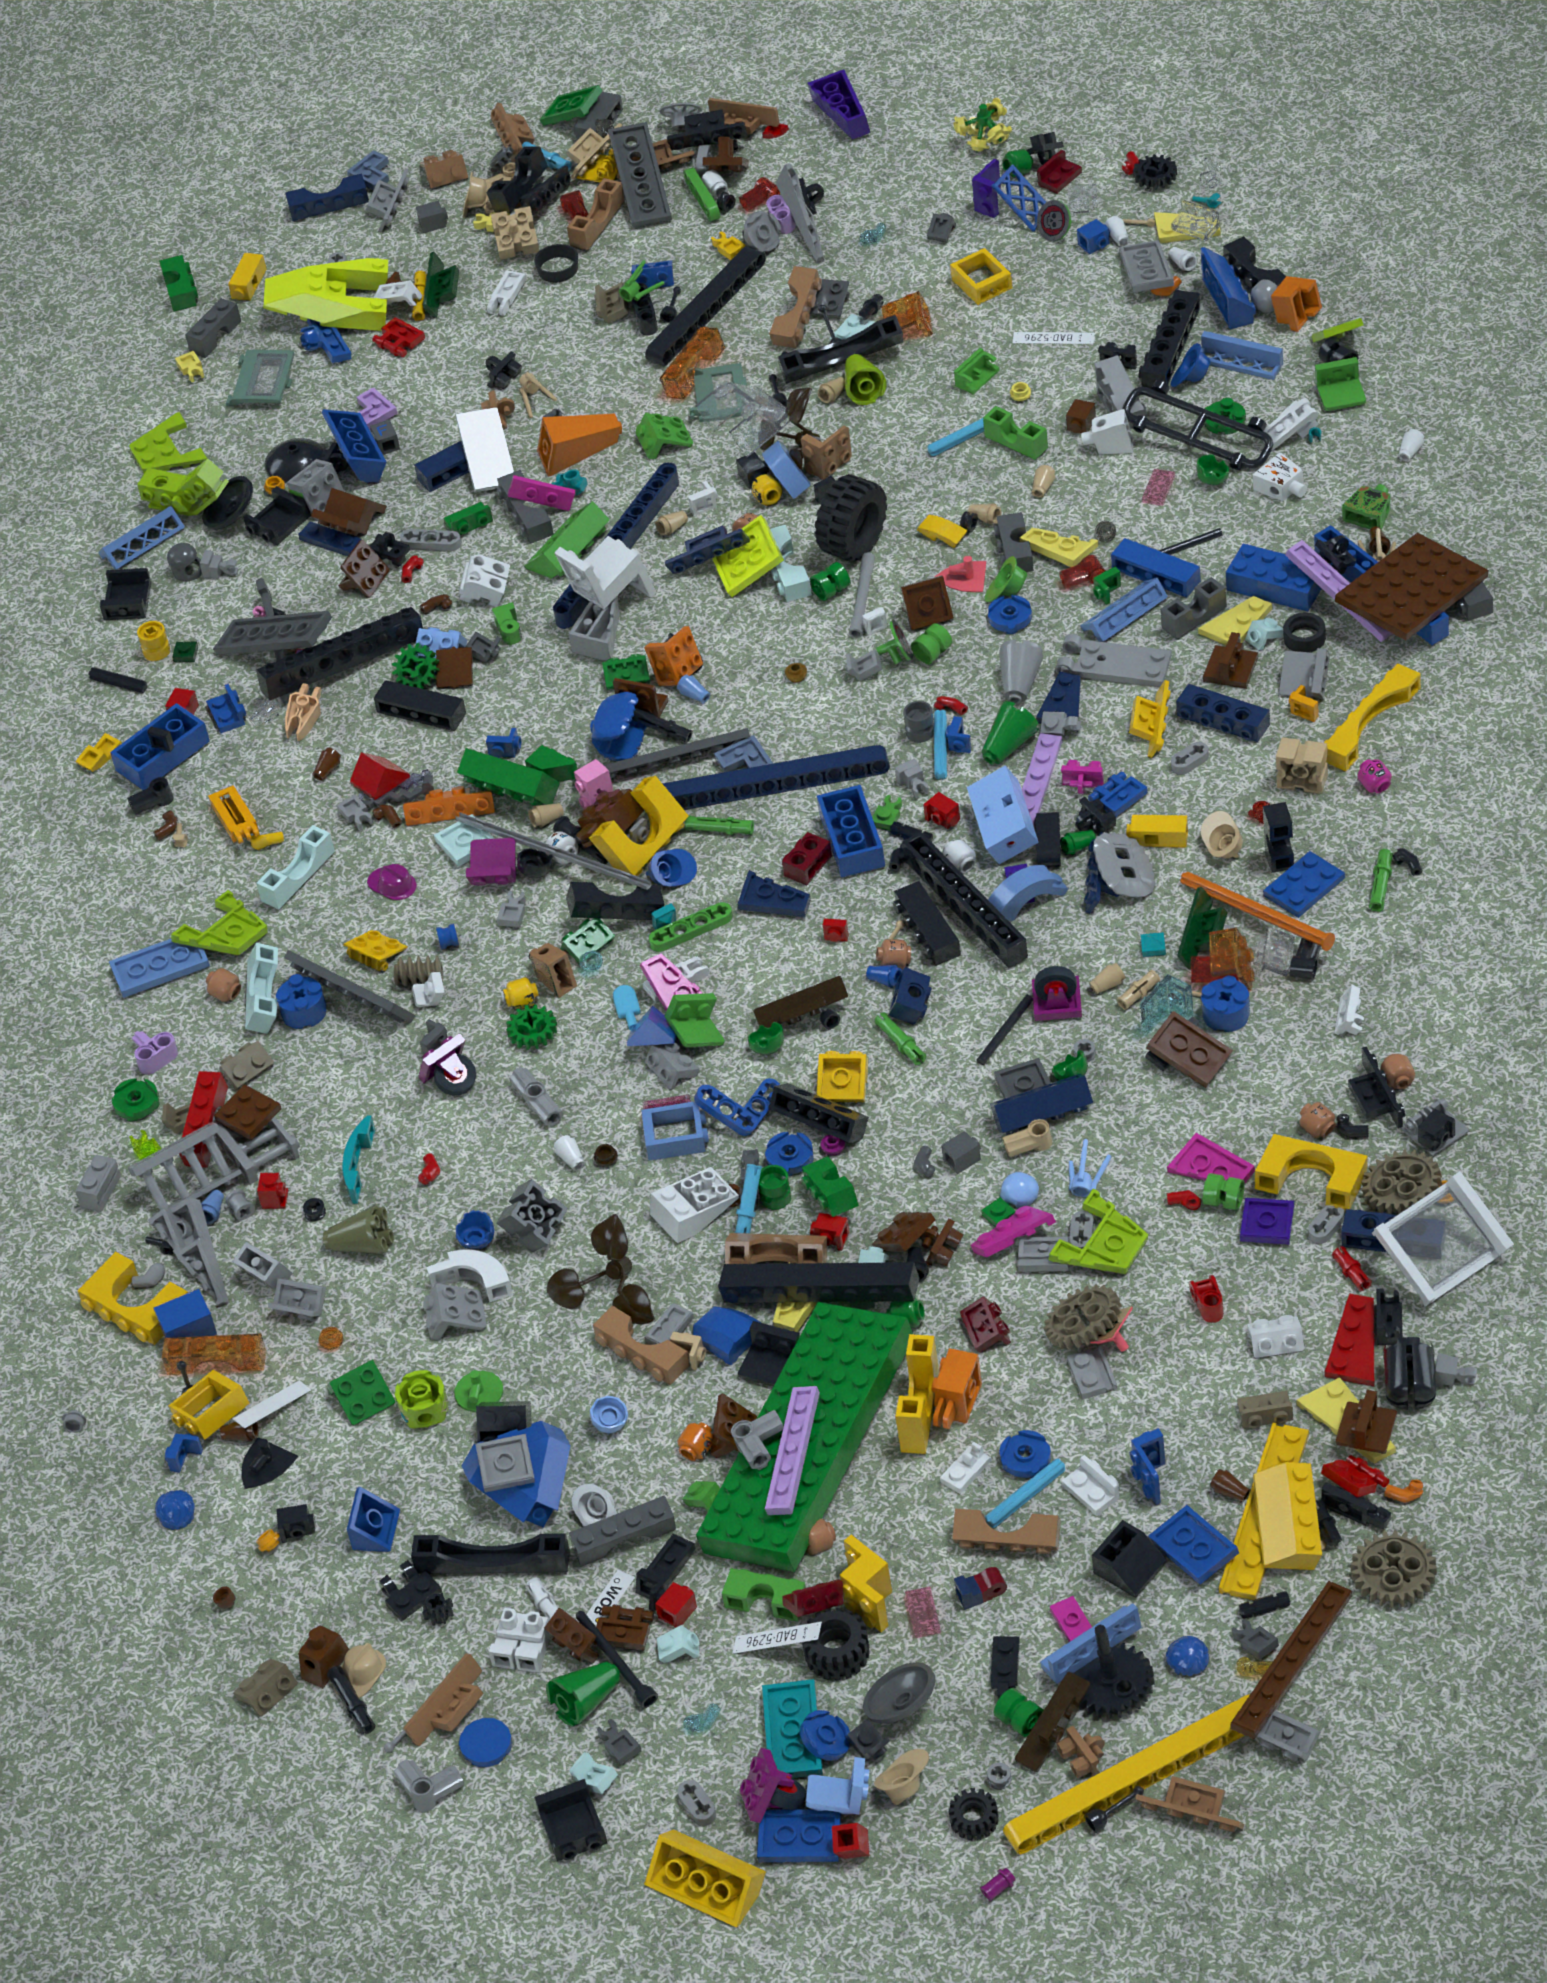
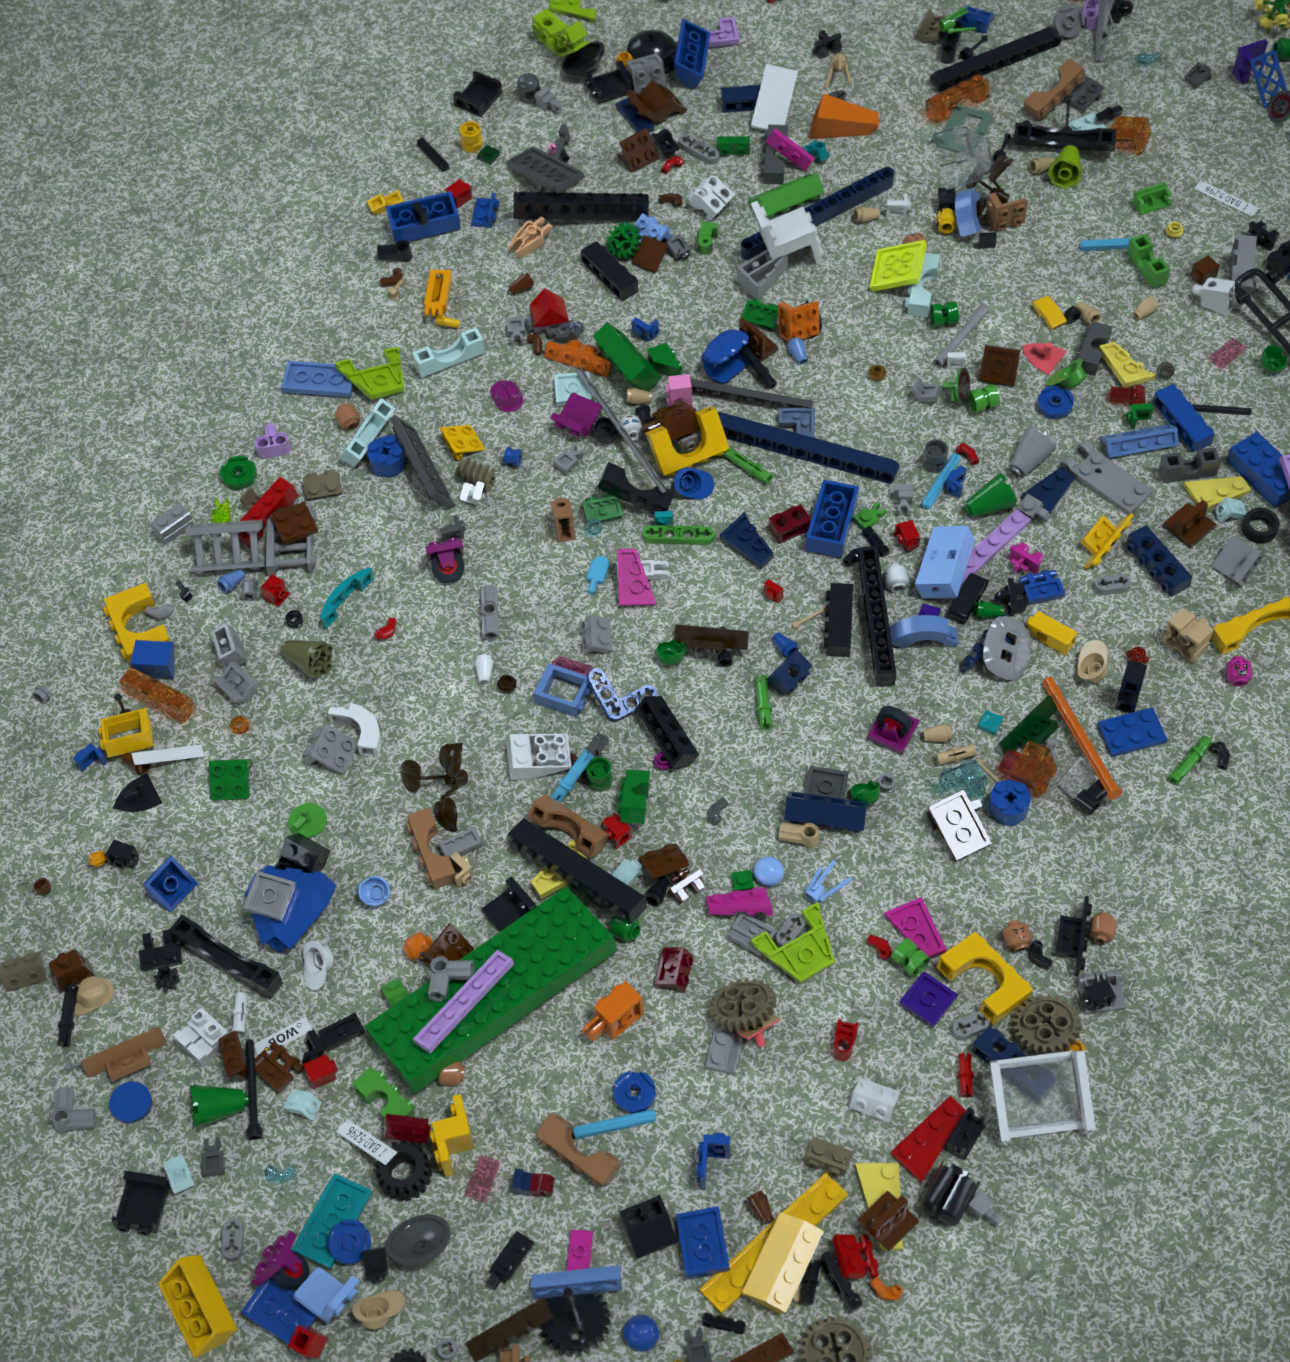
camera: 25 degrees right, 10 degrees up
(136, 533) = (515, 52): medium blue fence -> none
(175, 1509) = (58, 799): blue hair -> none
(189, 1236) = (200, 594): light grey wedge -> none
(385, 437) = (717, 58): dark grey brick -> none
(421, 1399) = (261, 807): lime brick -> none
(475, 1230) = (382, 695): blue hair -> none
(505, 407) = (805, 72): medium nougat hips -> none
(520, 993) = (530, 527): yellow head -> none
(520, 1029) = (524, 554): green gear -> none
(532, 1215) = (422, 706): dark grey brick -> none
(598, 1538) = (335, 990): dark grey arch -> none
(651, 1030) = (598, 604): blue slope -> none
(660, 429) = (905, 141): bright green bracket -> none
(691, 1020) = (629, 612): bright green bracket -> none
(706, 547) = (874, 246): dark blue bracket -> none
(725, 1332) = (494, 868): blue slope -> none
(727, 246) = (1039, 20): yellow plate -> none
(784, 1142) = (629, 761): blue plate -> none
(842, 1076) = (702, 711): yellow plate -> none
(850, 517) = (984, 272): black tyre -> none
(894, 953) = (801, 632): nougat head -> none
(916, 1409) = (568, 1023): yellow arch -> none
(961, 1152) = (746, 818): dark grey brick -> none
(965, 1468) = (587, 1078): white plate -> none
(980, 292) = (1196, 137): yellow window -> none
(1004, 1030) = (841, 734): black bar -> none
(1017, 1711) = (491, 1305): green wheel -> none
(1092, 1486) = (663, 1147): white bracket -> none
(1302, 705) = (1221, 584): light orange bracket -> none
(1347, 1019) = (1094, 859): white plate -> none

